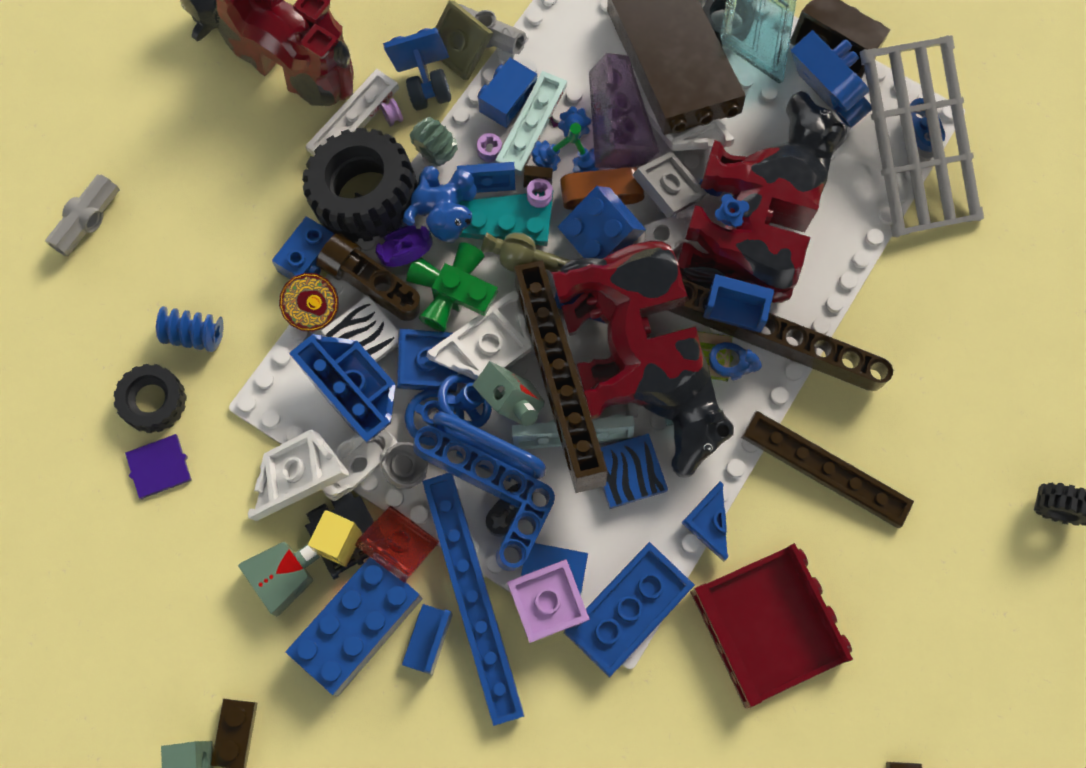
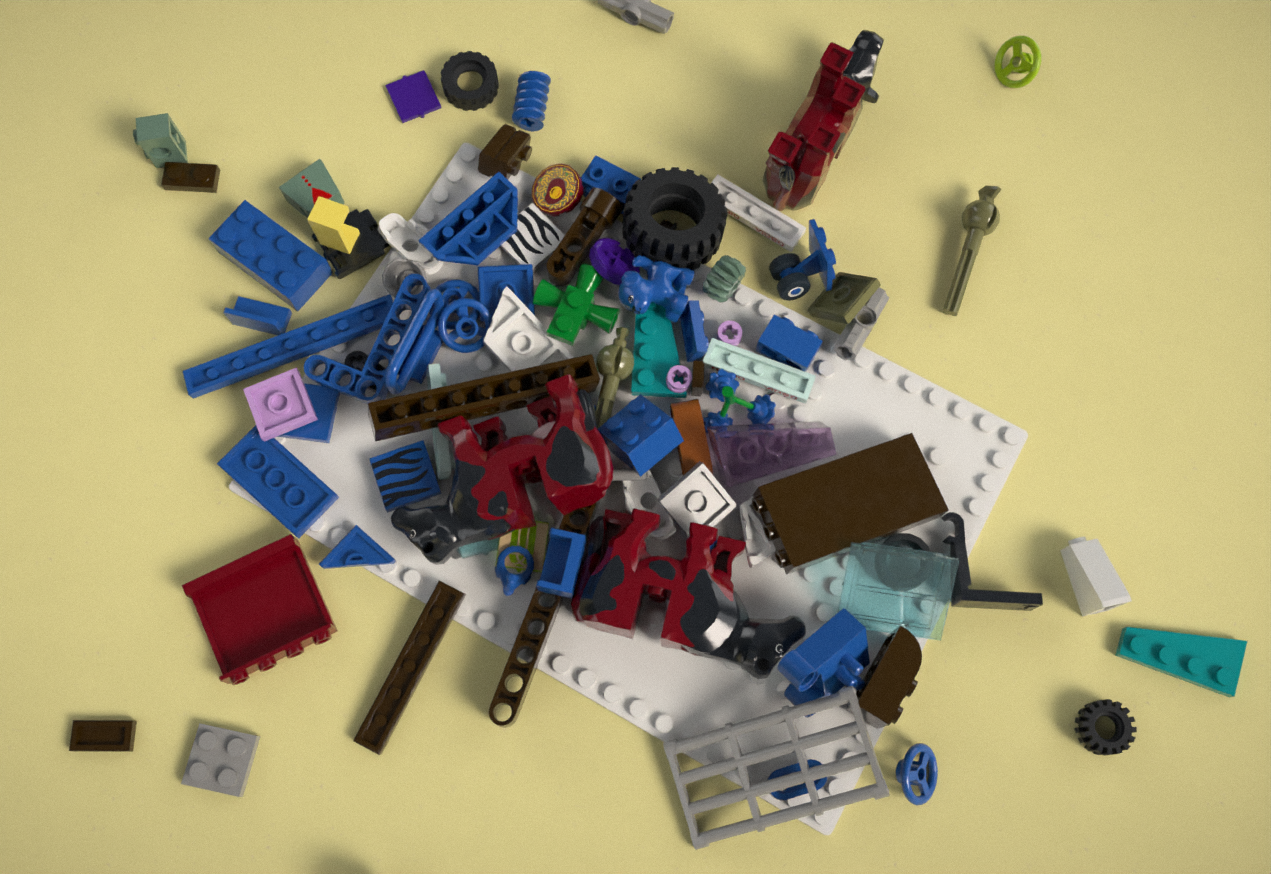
camera: 90 degrees right, 0 degrees up
(255, 356) = (505, 152): none -> dark brown brick
(294, 473) = (400, 195): white wing -> none
(391, 112) = (761, 246): lavender bush -> none
(397, 543) = (337, 280): clear red tile -> none
(519, 400) = (463, 356): sand green torso -> none
(728, 218) = (652, 554): blue plate -> none
(913, 31) = (914, 773): none -> blue piece
(924, 664) = (220, 760): none -> light grey plate

